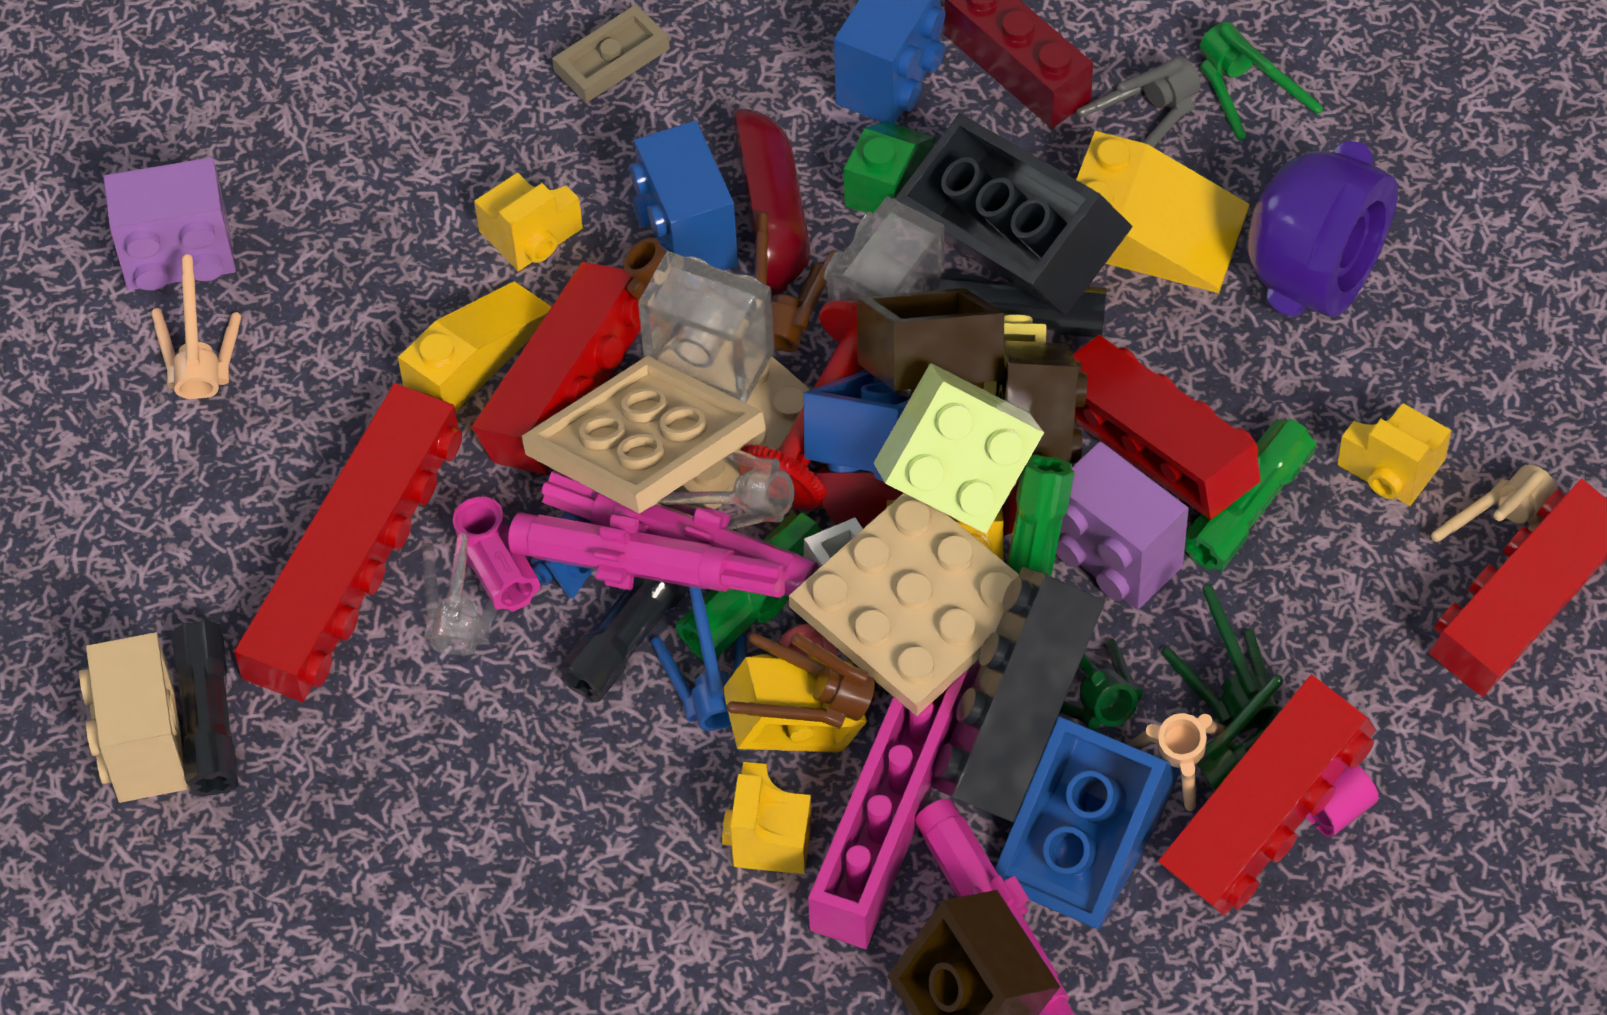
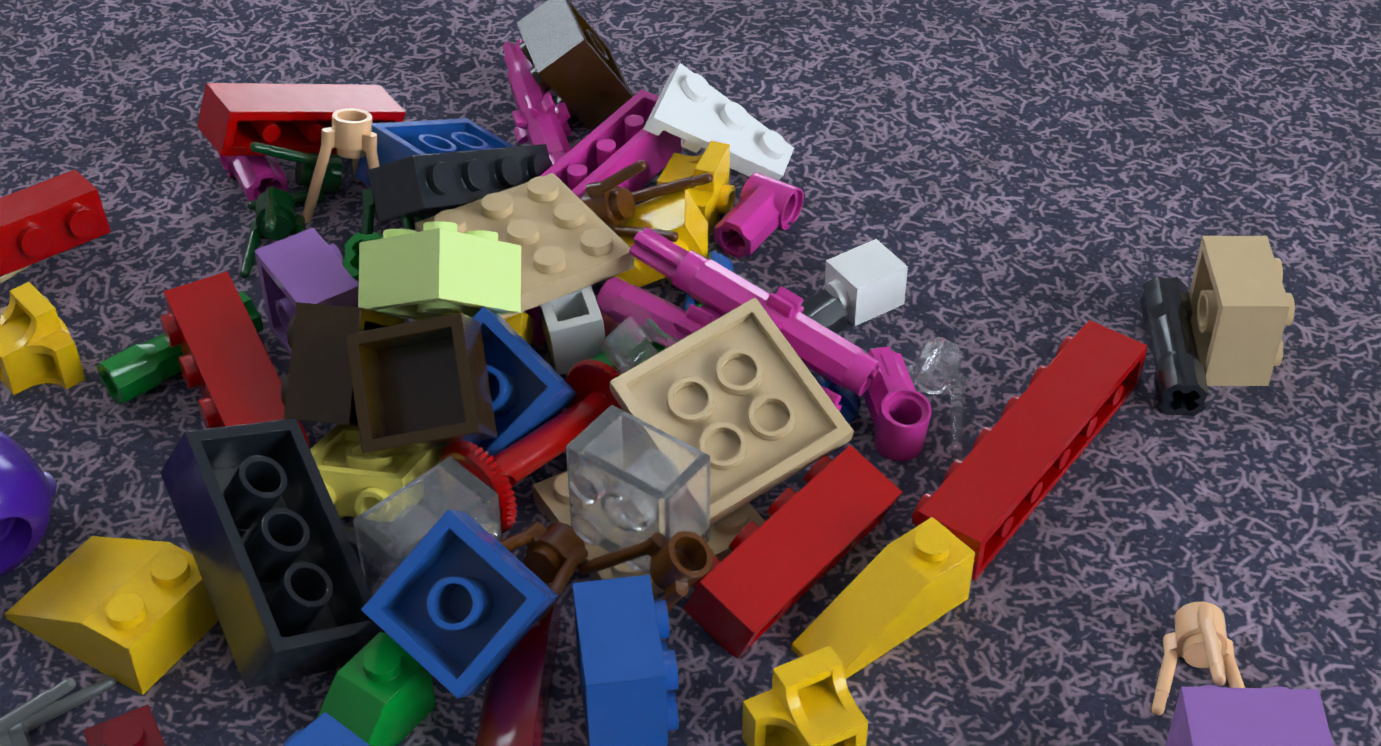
camera: 170 degrees left, 15 degrees down
(547, 722) = (866, 281): none -> white brick
(685, 823) = (761, 209): none -> dark pink piece
(762, 894) = (702, 114): none -> white wing
(820, 175) = (460, 603): none -> blue brick

